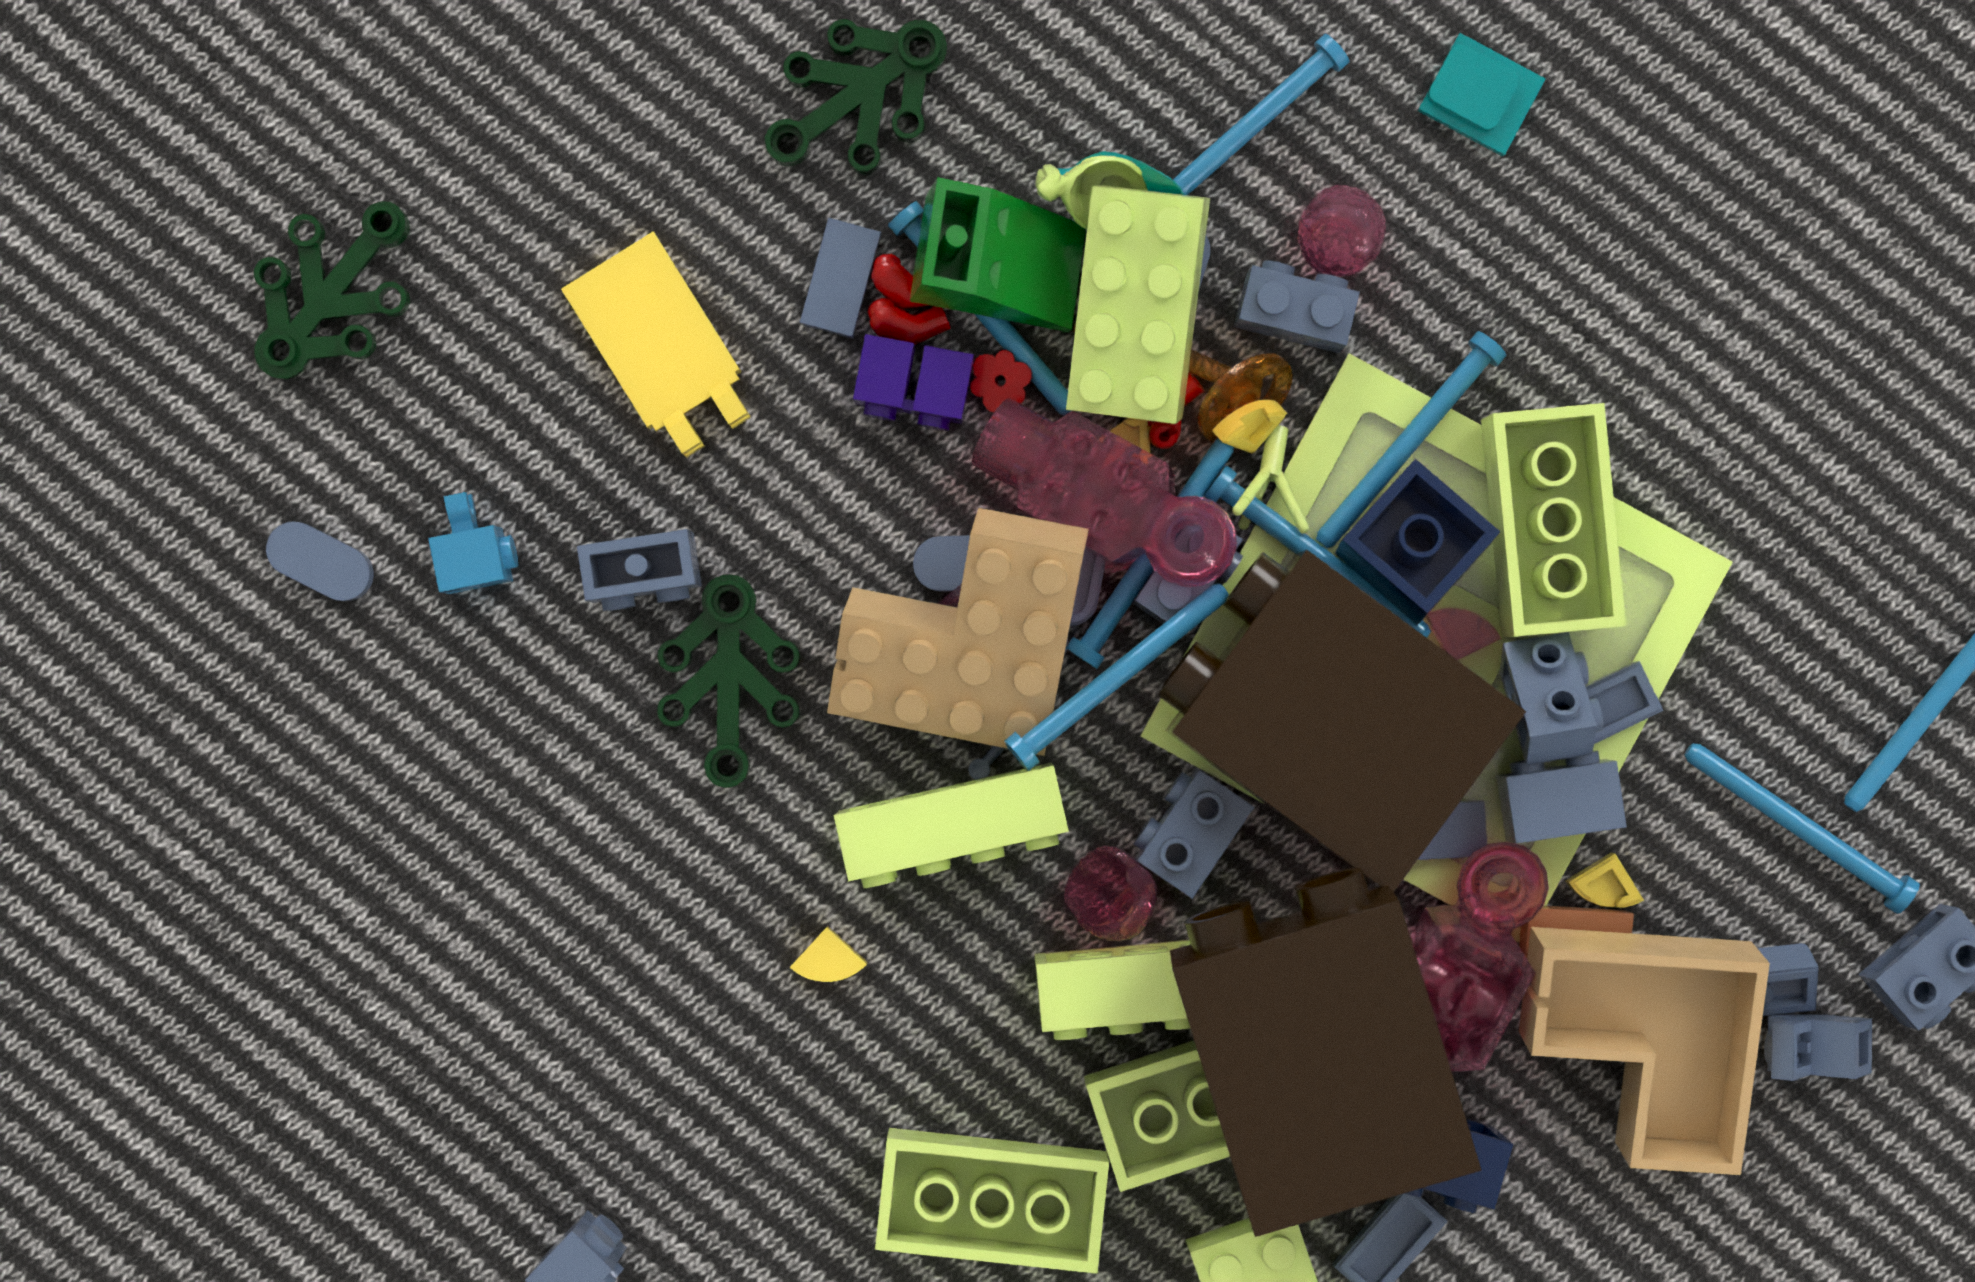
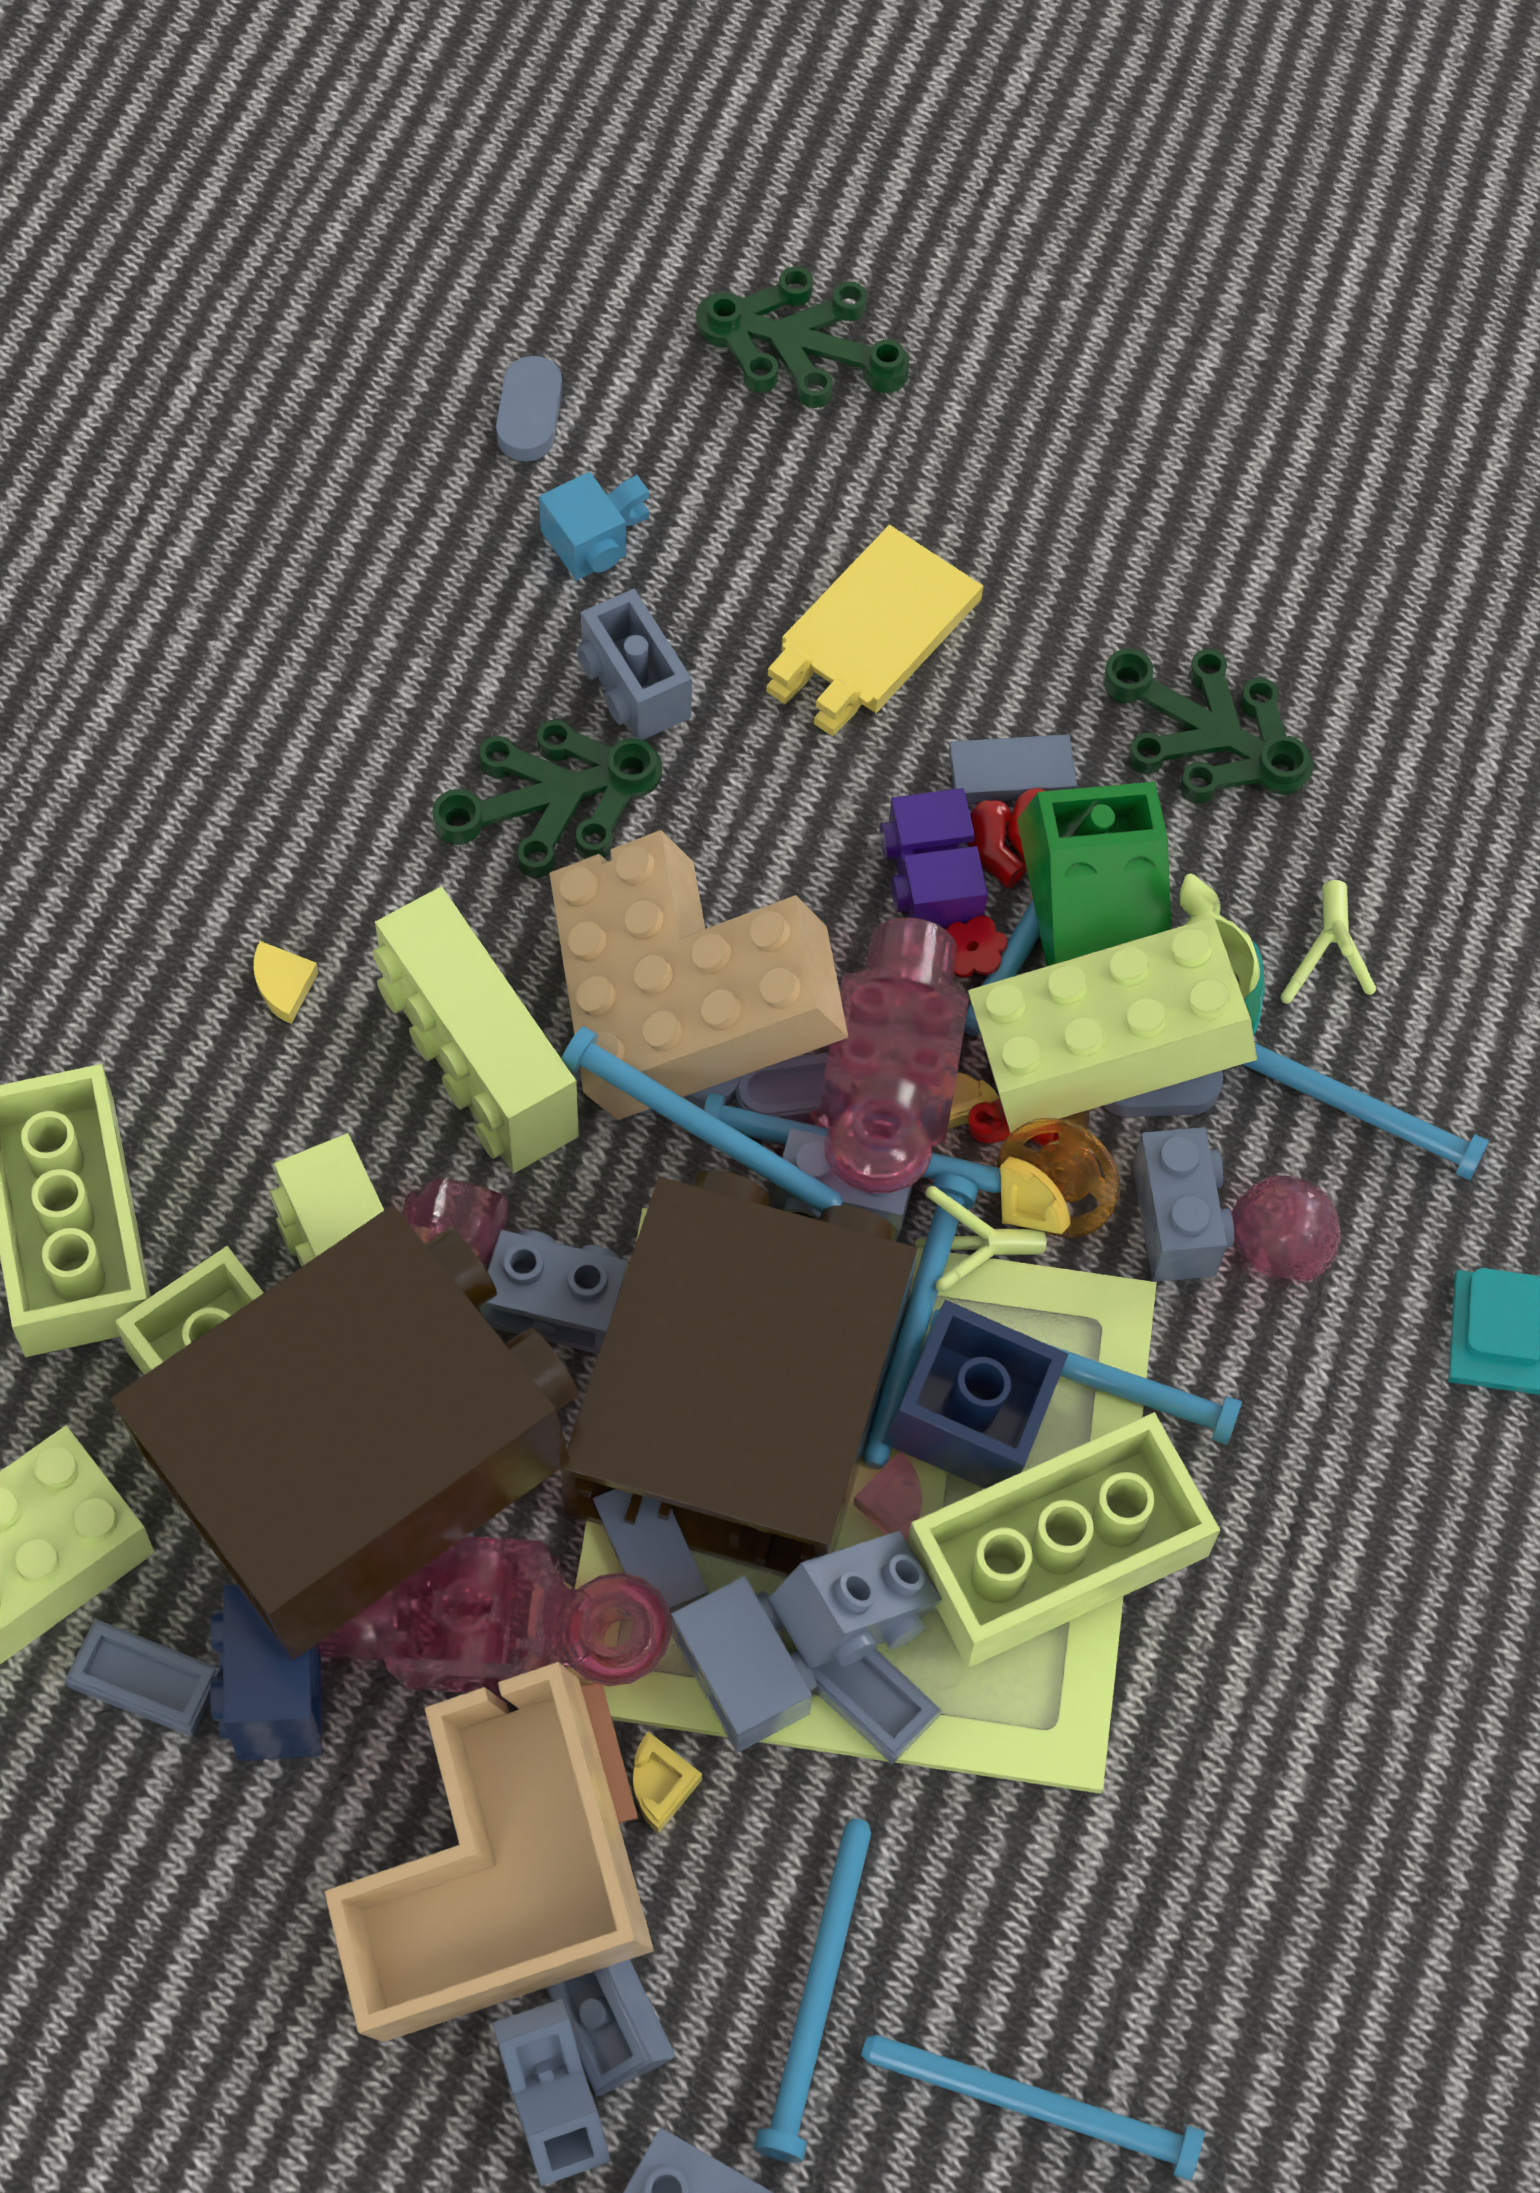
camera: 65 degrees right, 25 degrees down
(1089, 71) = (1336, 931): none -> yellowish green plant

